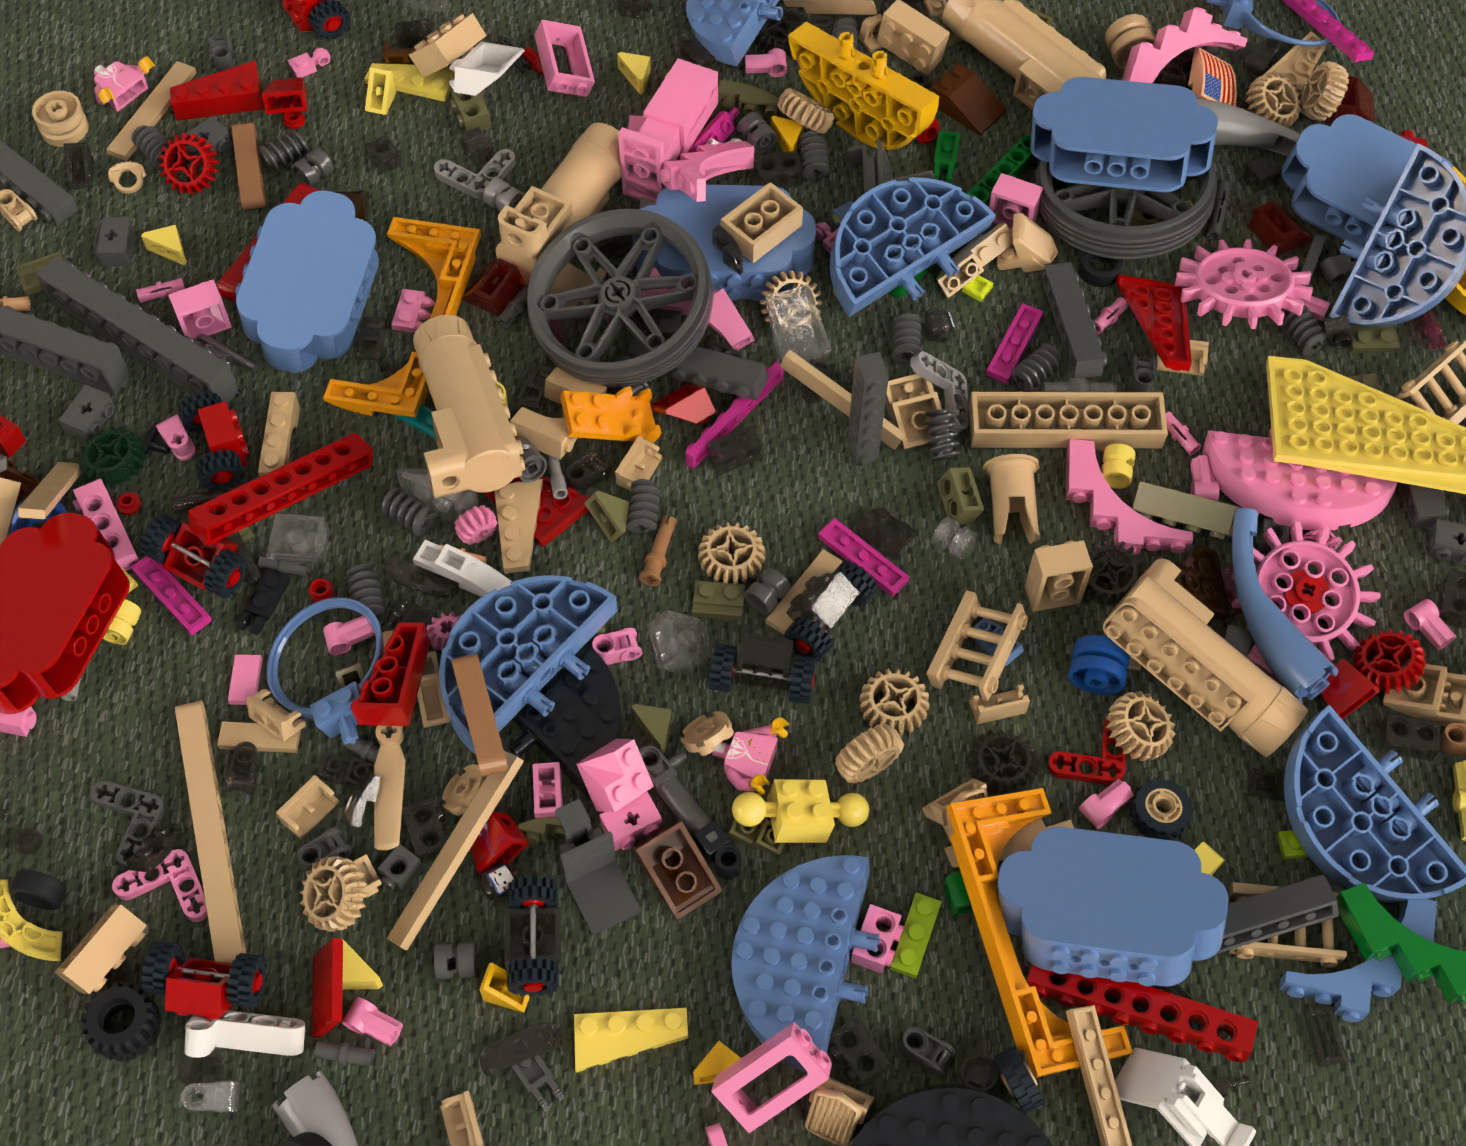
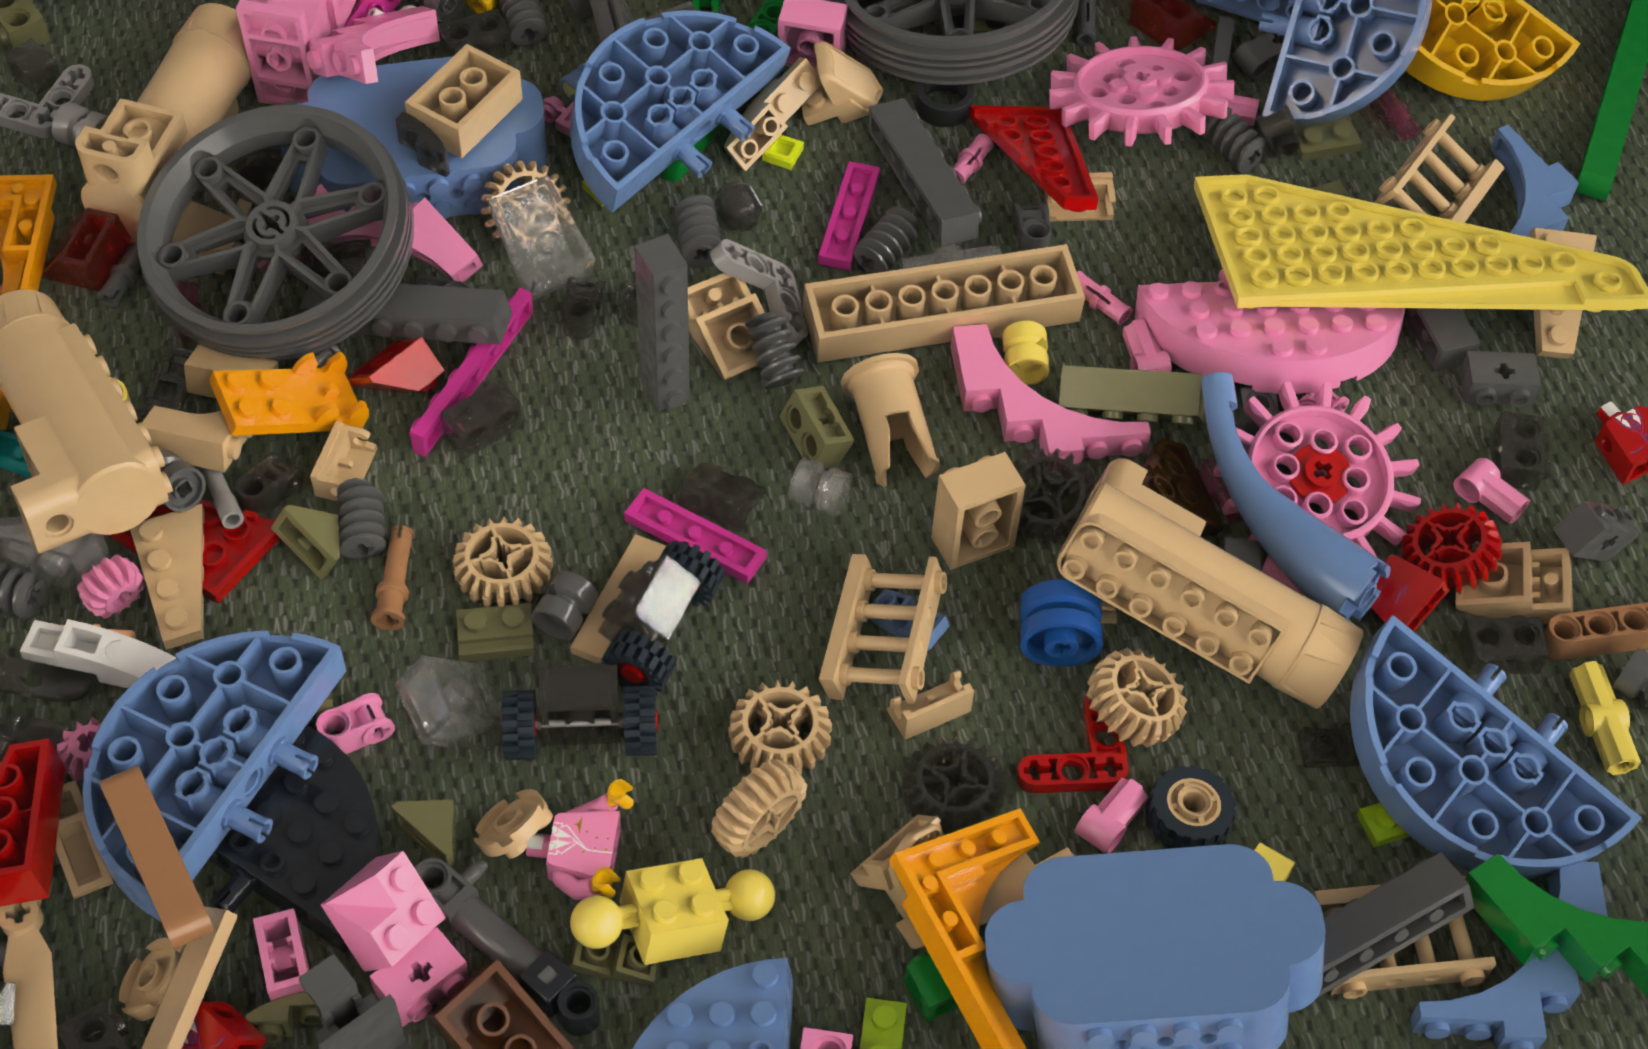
camera: 15 degrees left, 5 degrees down
(833, 393) = (608, 316): tan tile -> none

